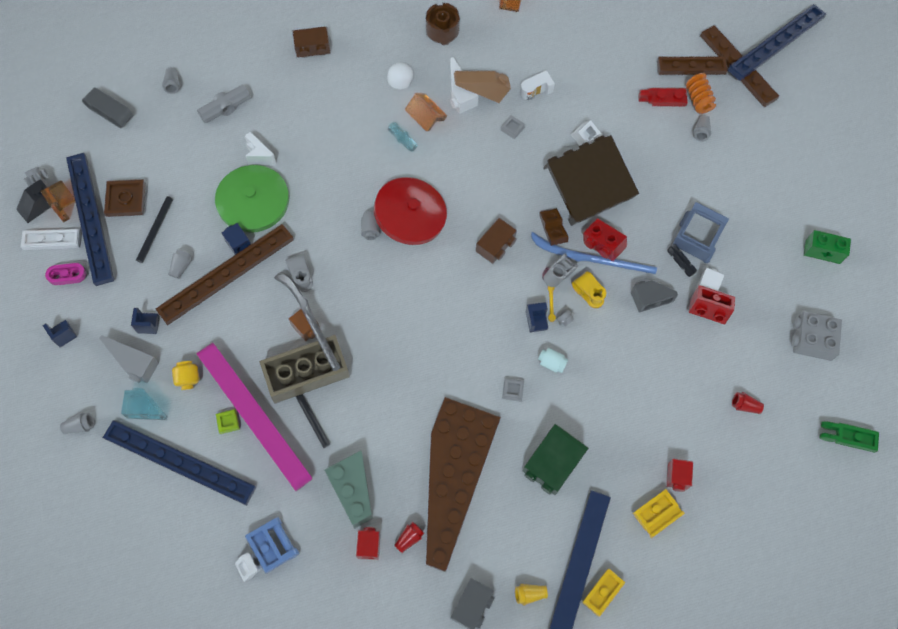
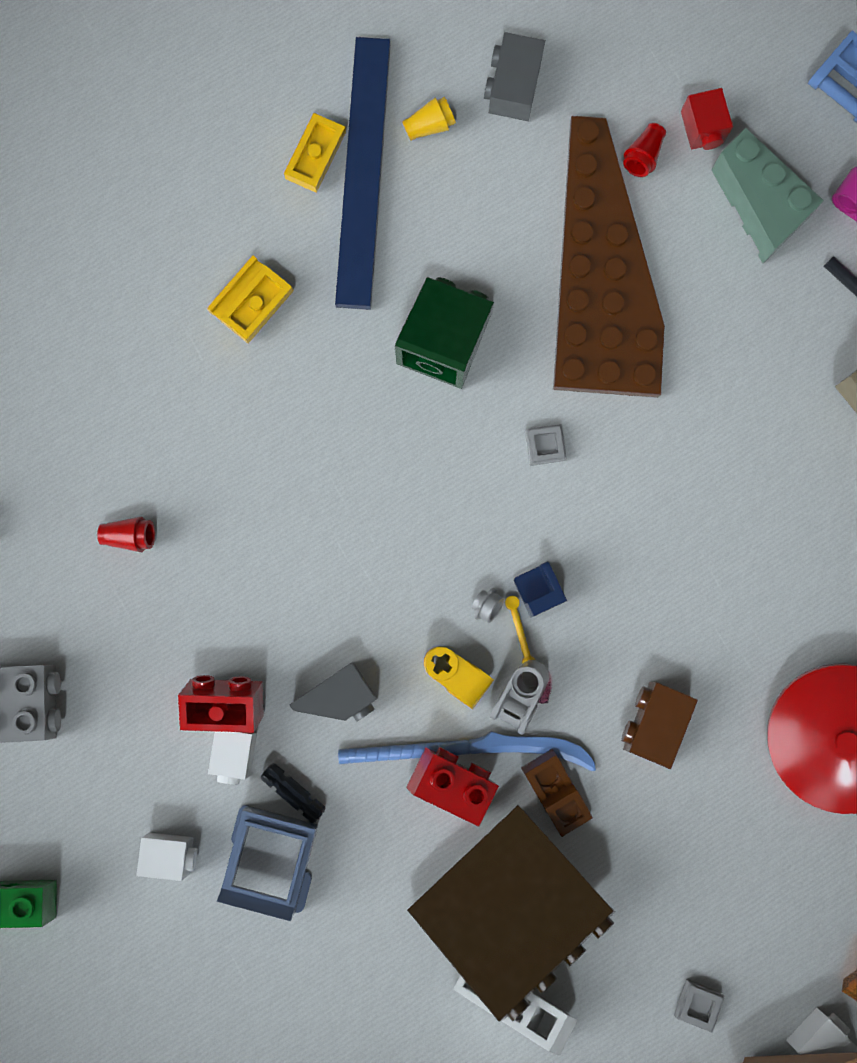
camera: 165 degrees right, 15 degrees up
(553, 360) = (490, 514): light aqua brick -> none
(679, 475) = (226, 371): red brick -> none
(749, 248) = (166, 856): none -> white brick

